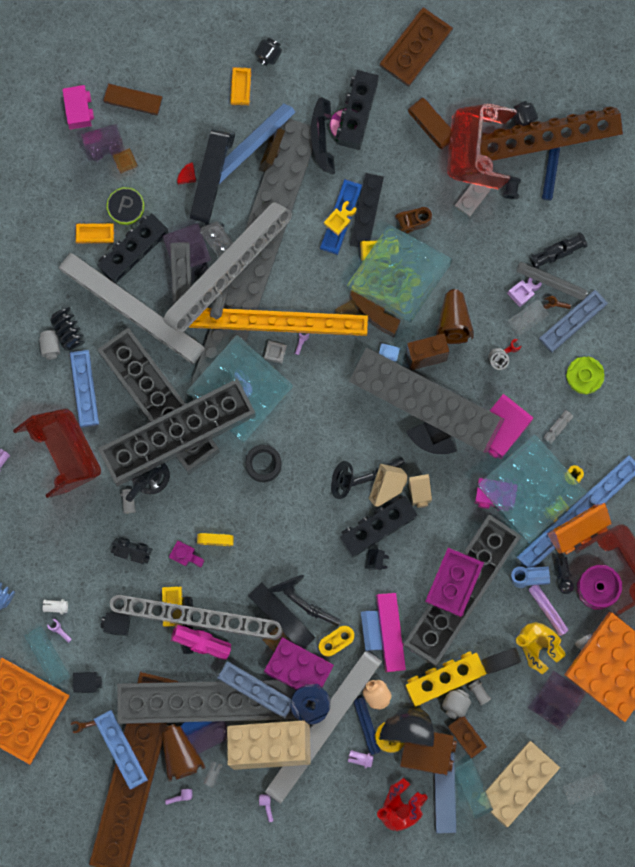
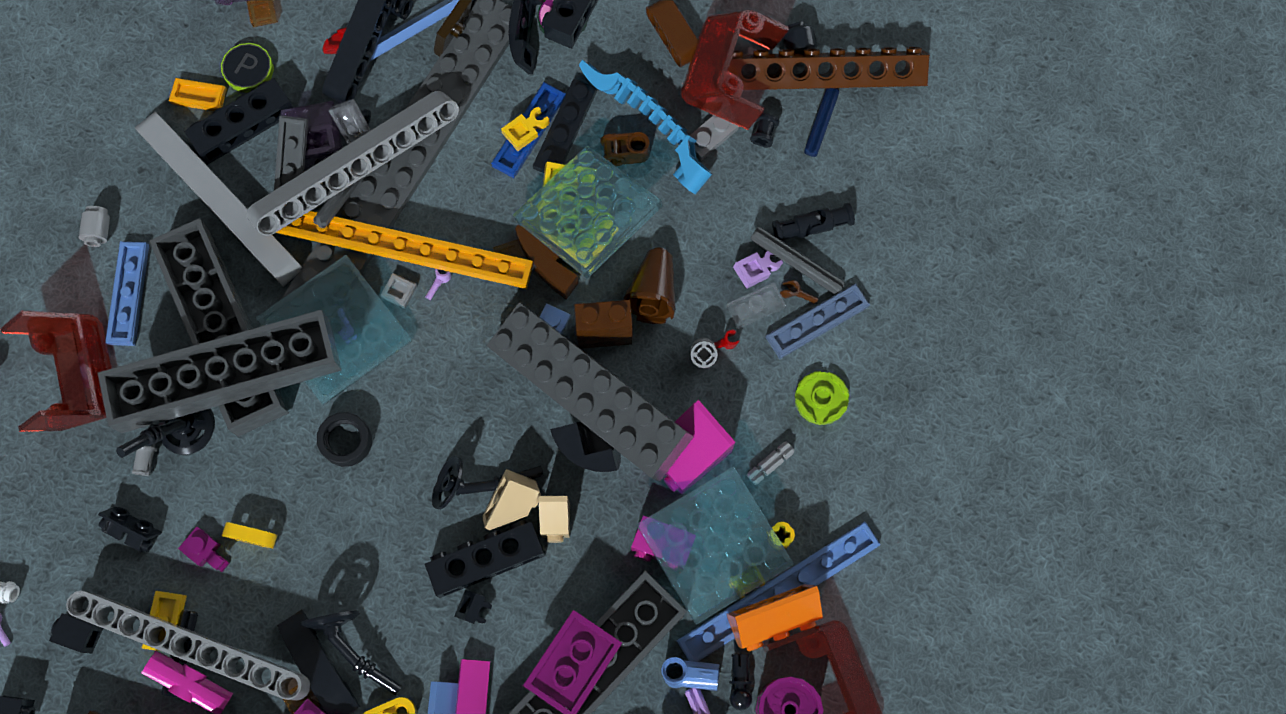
camera: 10 degrees right, 5 degrees down
(66, 330) = (122, 209): black piece -> none
(464, 230) = (691, 172): none -> dark azure piece

